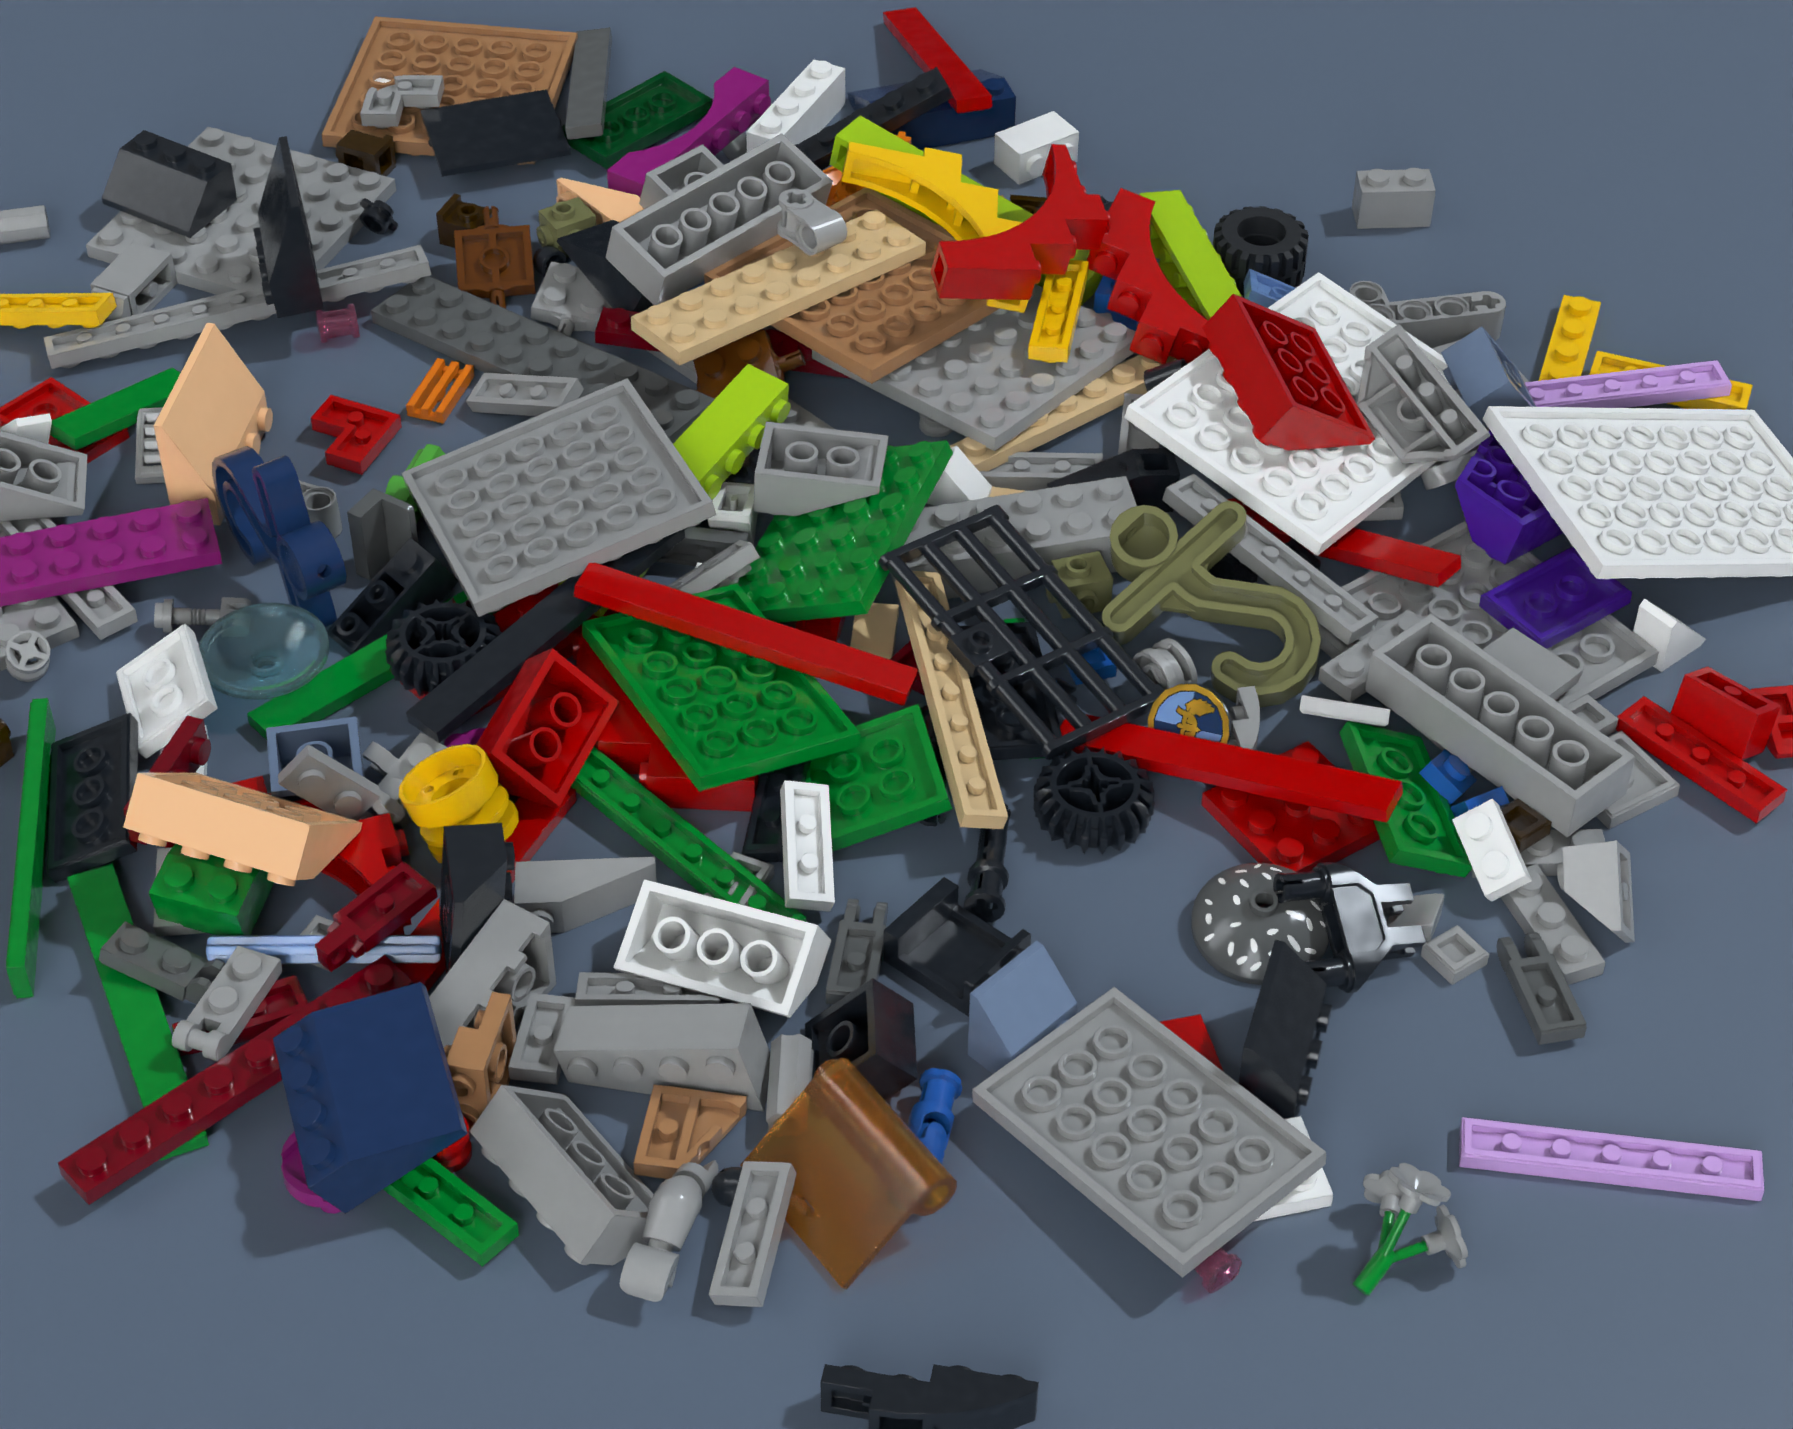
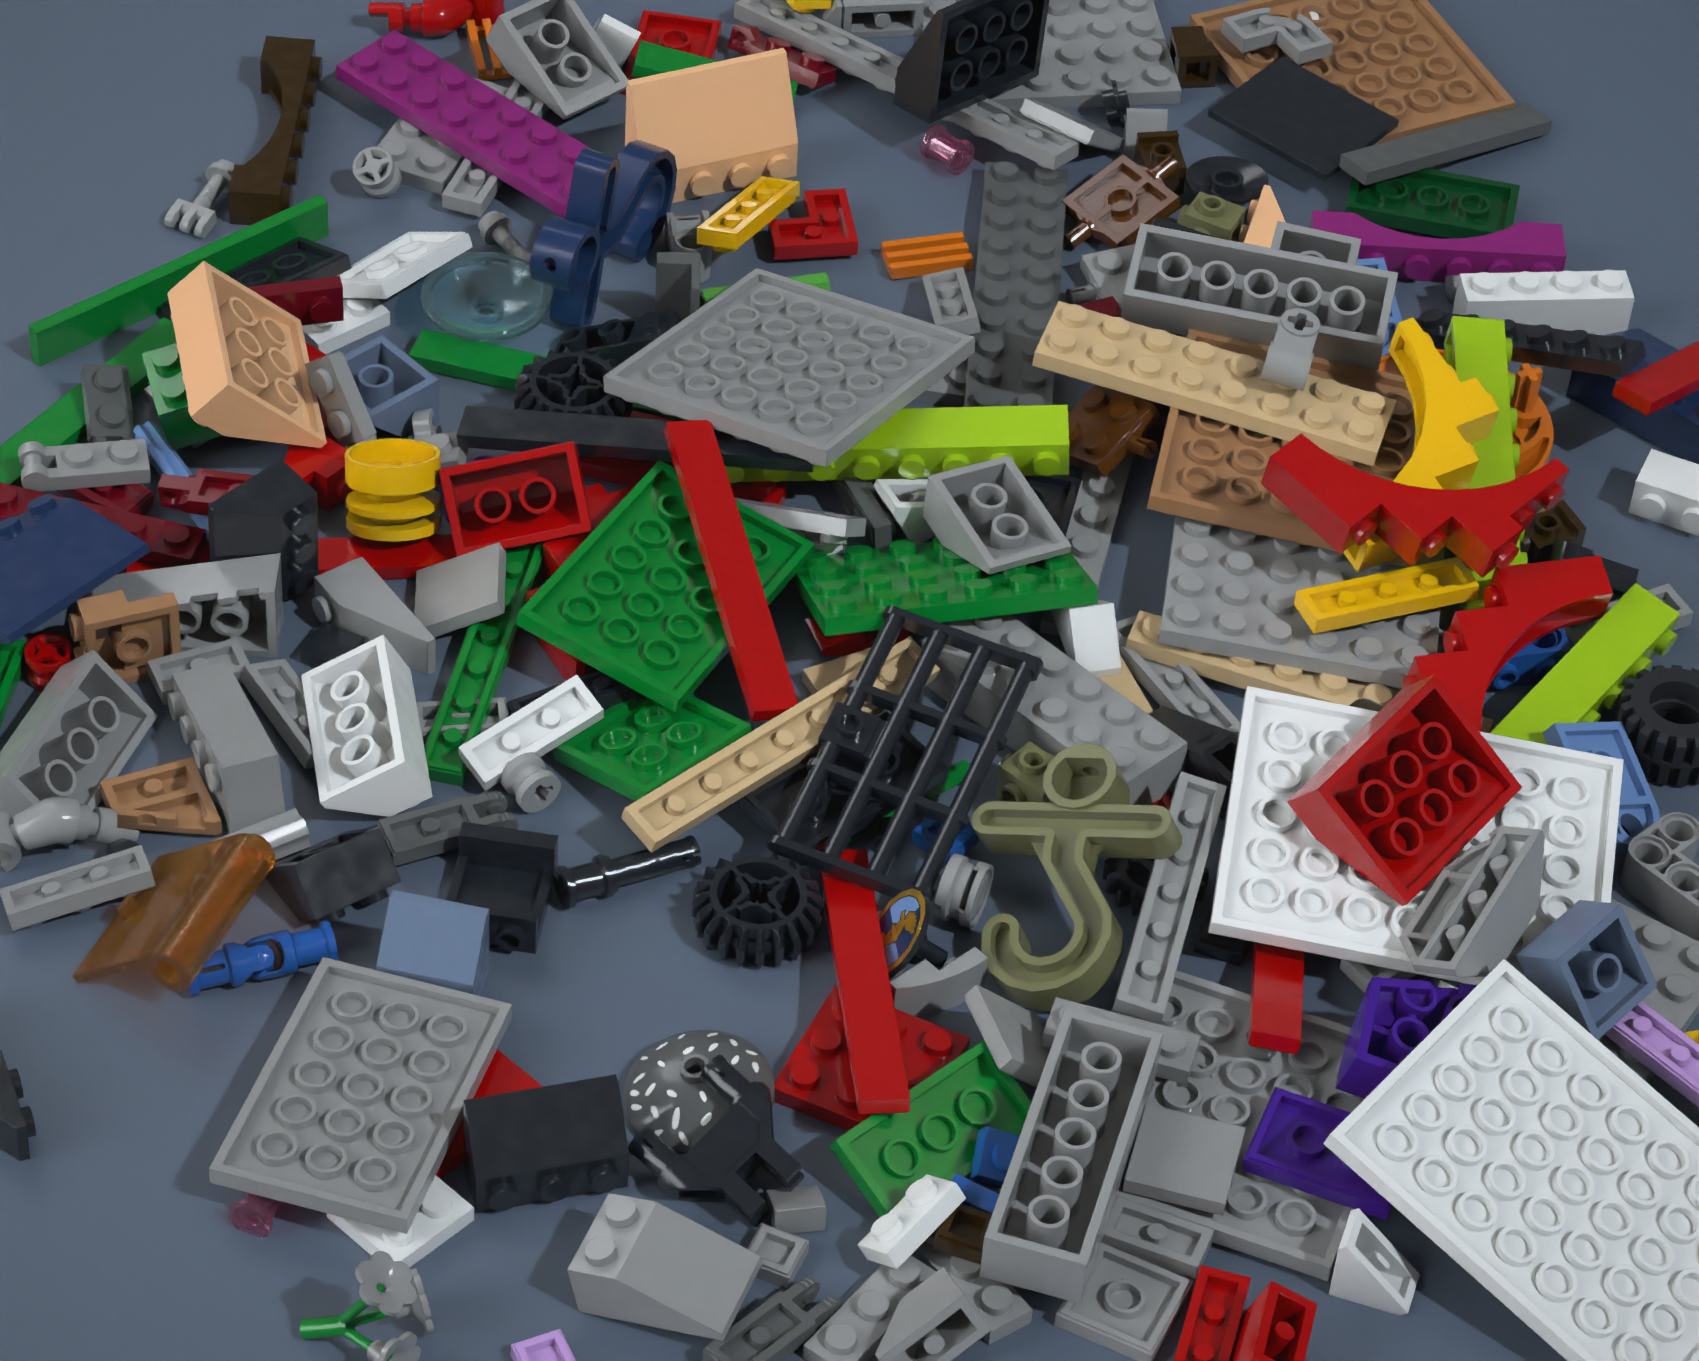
camera: 55 degrees right, 0 degrees up
(131, 363) = (803, 67): none -> dark red hinge
(317, 455) = (747, 213): none -> yellow plate
(387, 244) = (1071, 125): none -> light grey tile
(421, 217) = (1142, 121): none -> light grey slope
(521, 199) = (1227, 178): none -> black dish
(583, 940) = (328, 644): none -> black tile
(599, 818) = (461, 590): none -> light grey tile
(852, 875) = (530, 782): none -> light grey wheel
(1450, 1023) = (660, 1270): none -> light grey slope

